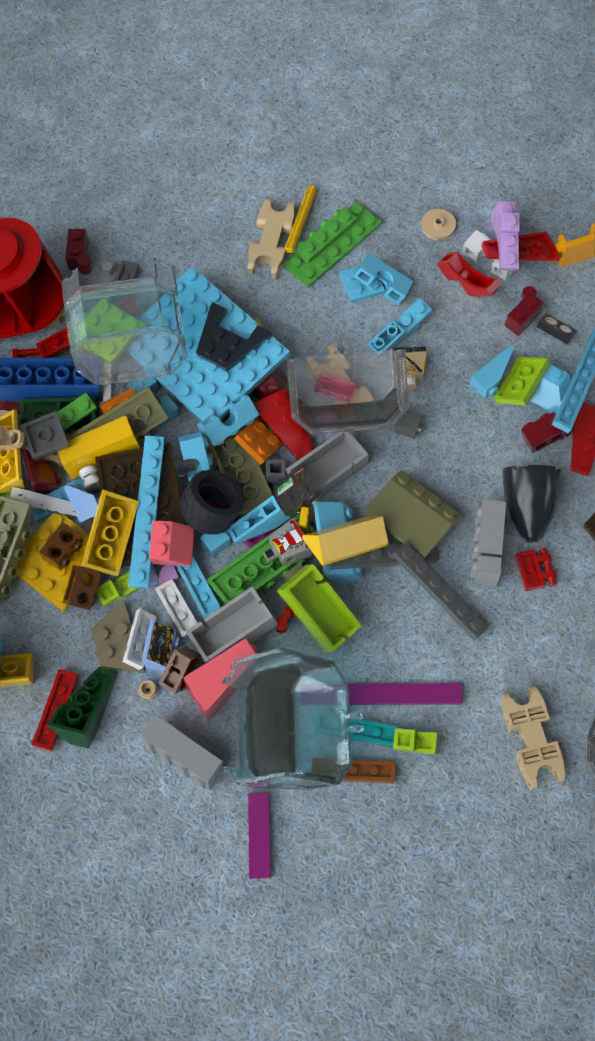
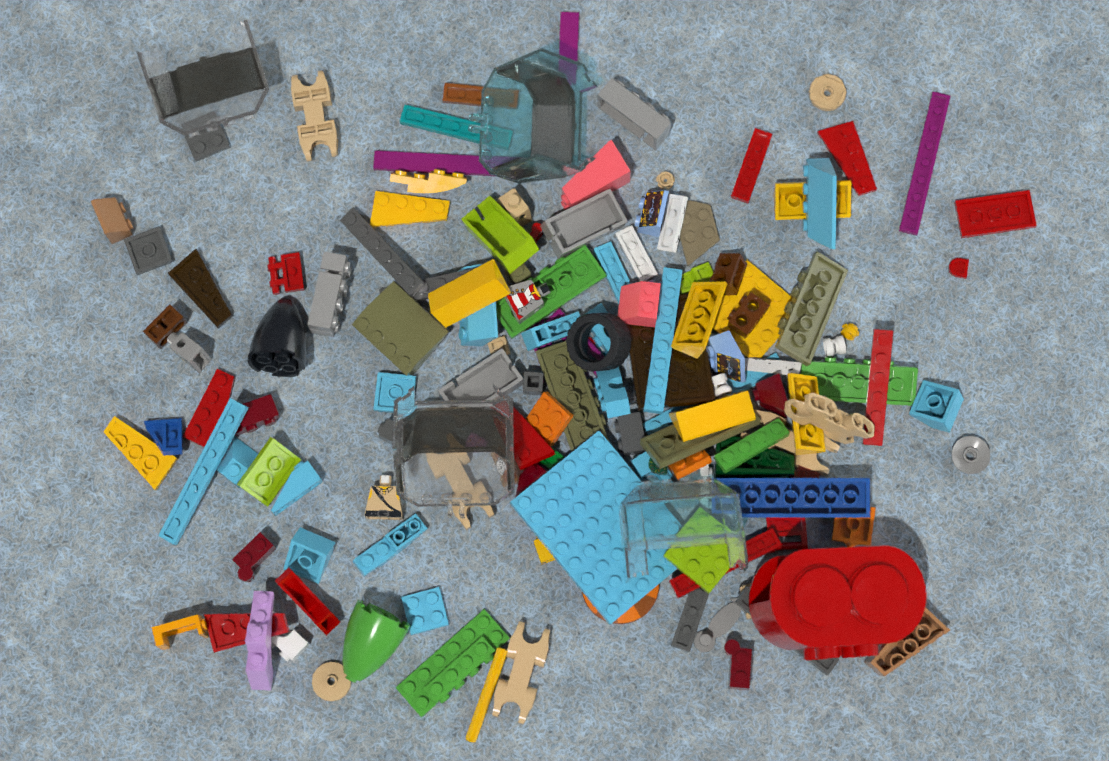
camera: 175 degrees left, 10 degrees up
(45, 435) = (765, 422): dark grey plate -> none
(82, 714) = (724, 163): dark green wedge -> none
(174, 428) = (630, 432): none -> dark grey brick
(180, 664) = (634, 188): reddish brown brick -> none
(224, 347) = (581, 514): black wing -> none
(241, 413) = (590, 422): medium azure arch -> none
(296, 491) = (513, 351): clear smoke slope -> none
(304, 519) = (508, 323): yellow tile -> none
(307, 642) = (515, 207): none -> tan torso
(334, 388) = (466, 467): clear pink tile -> none
(393, 667) = (437, 181): none -> yellow slope
(396, 283) = (388, 596): medium azure arch -> none
(408, 245) = (370, 640): none -> bright green cylinder
(412, 459) = (389, 388): none -> medium azure plate
(415, 742) = (421, 114): lime slope -> none
(427, 642) = (399, 209): none -> yellow wing
(472, 318) = (309, 555): none -> medium azure slope
(556, 328) = (220, 540): black slope -> none

